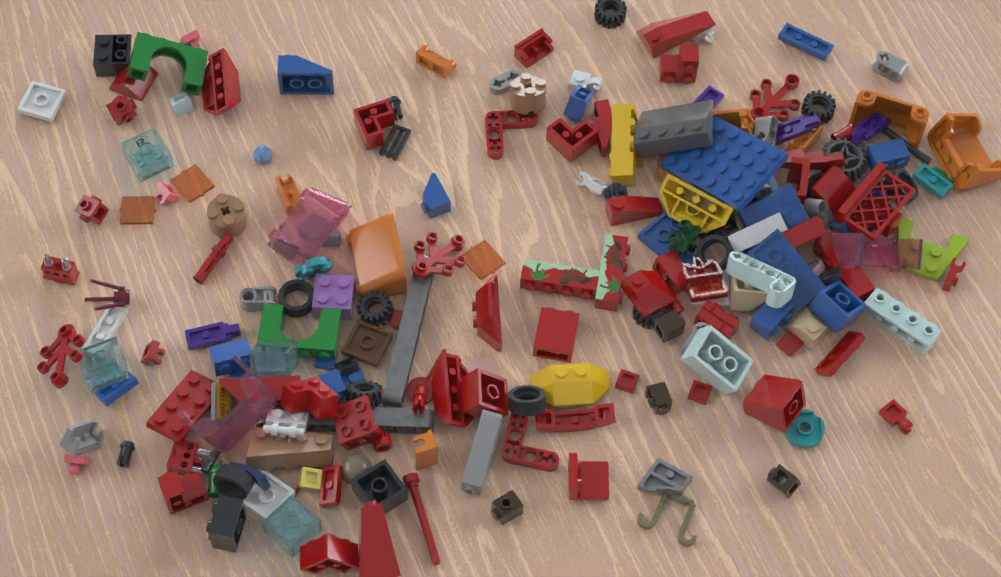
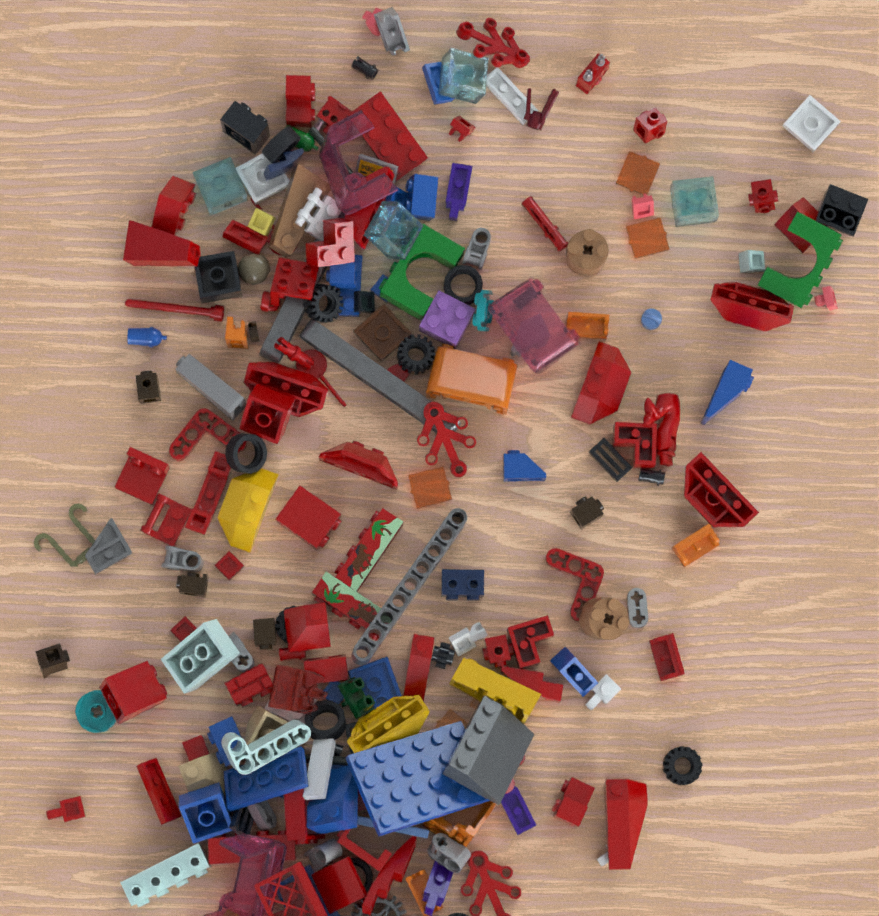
camera: 110 degrees right, 20 degrees up
(335, 168) = (602, 385): none -> red wedge
(344, 112) = (668, 407): none -> red piece
(391, 54) = (715, 495): none -> red wedge
(410, 445) = (253, 331): none -> dark brown tile
(447, 139) = (587, 511): none -> dark brown brick
(460, 527) = (145, 336): none -> blue piece
(551, 203) = (462, 583): none -> dark blue brick
(583, 235) = (403, 593): none -> flat silver beam
(591, 157) = (500, 643): none -> red brick
(615, 440) = (172, 523): none -> red plate
(643, 418) = (178, 559): none -> light grey piece

